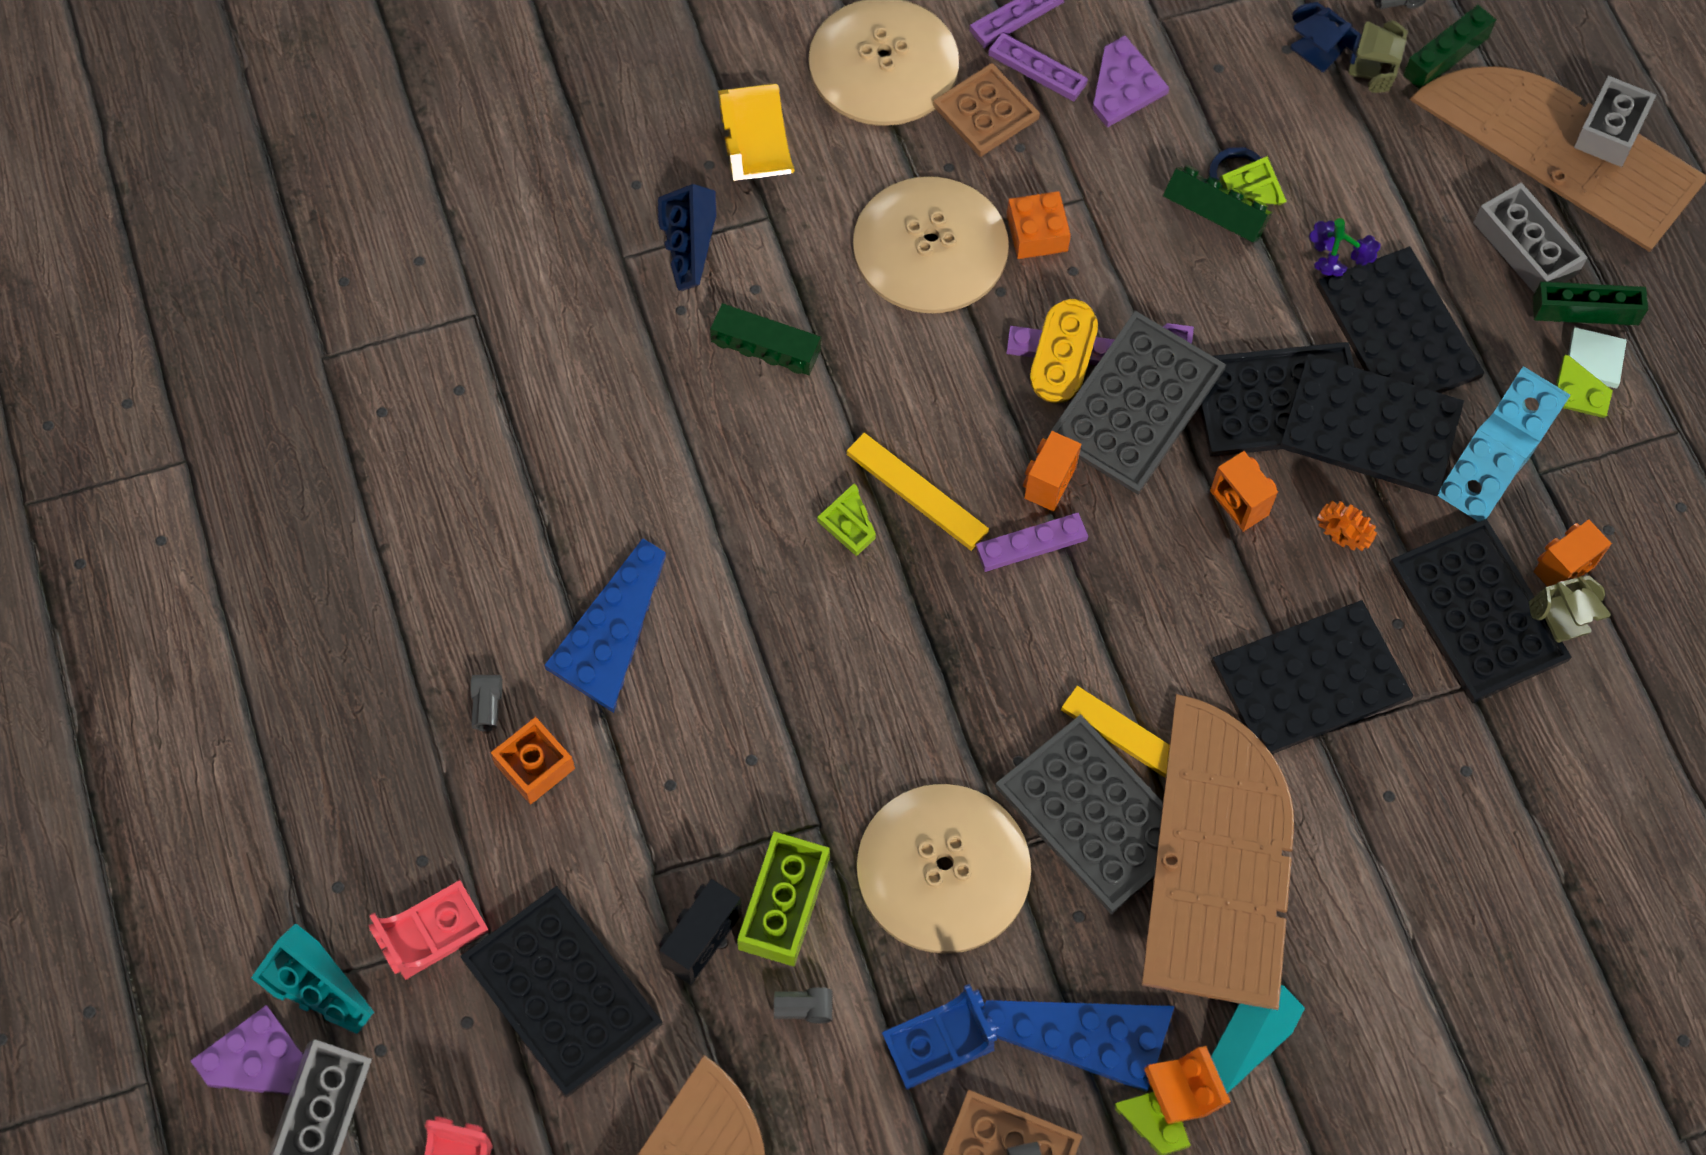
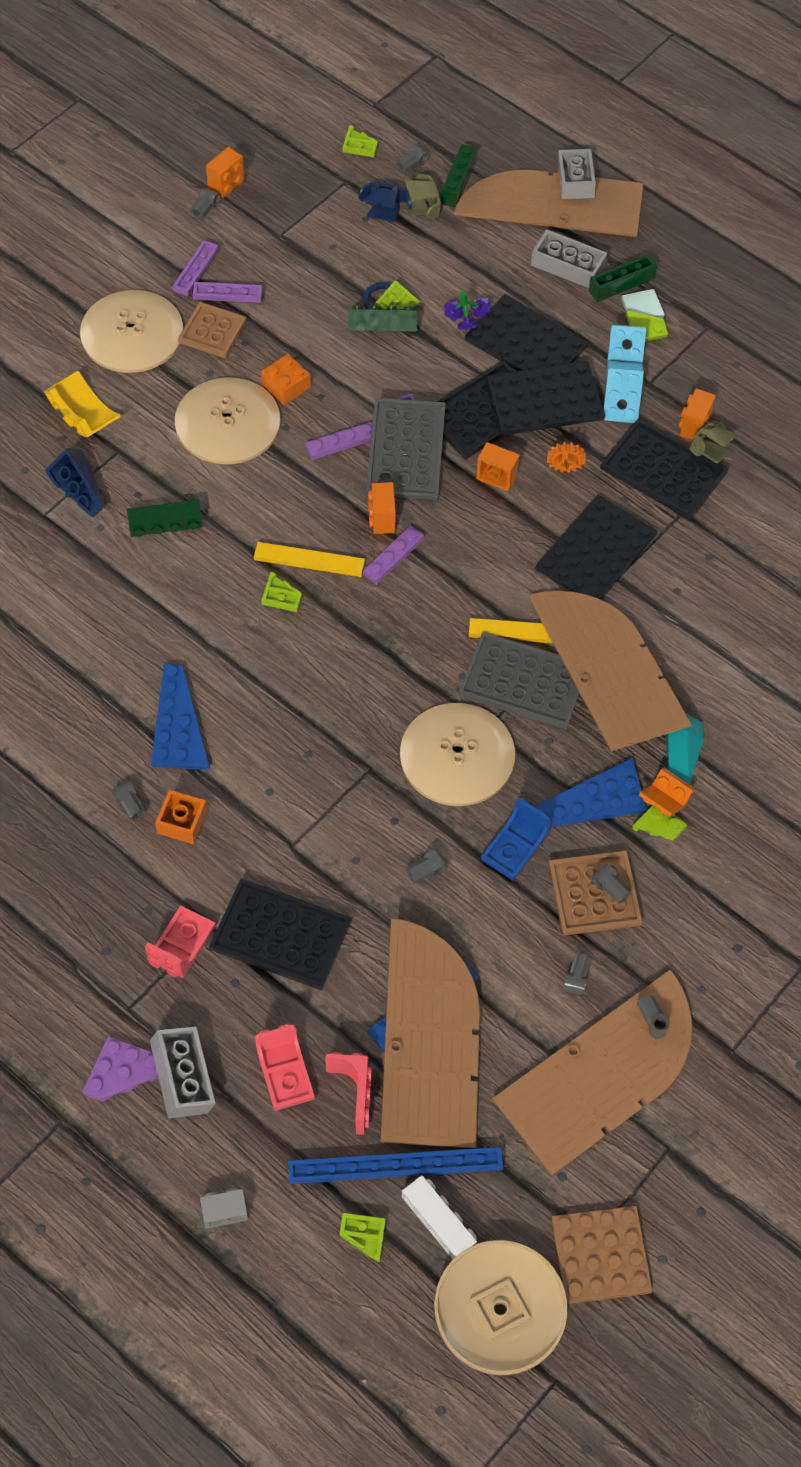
camera: 30 degrees left, 5 degrees down
(307, 975) = (123, 1006): teal wedge -> none
(700, 931) = (342, 856): black brick -> none
(783, 899) = (379, 815): lime brick -> none
(1063, 351) = (346, 441): yellow tile -> none
(1125, 83) = (284, 278): medium lavender plate -> none

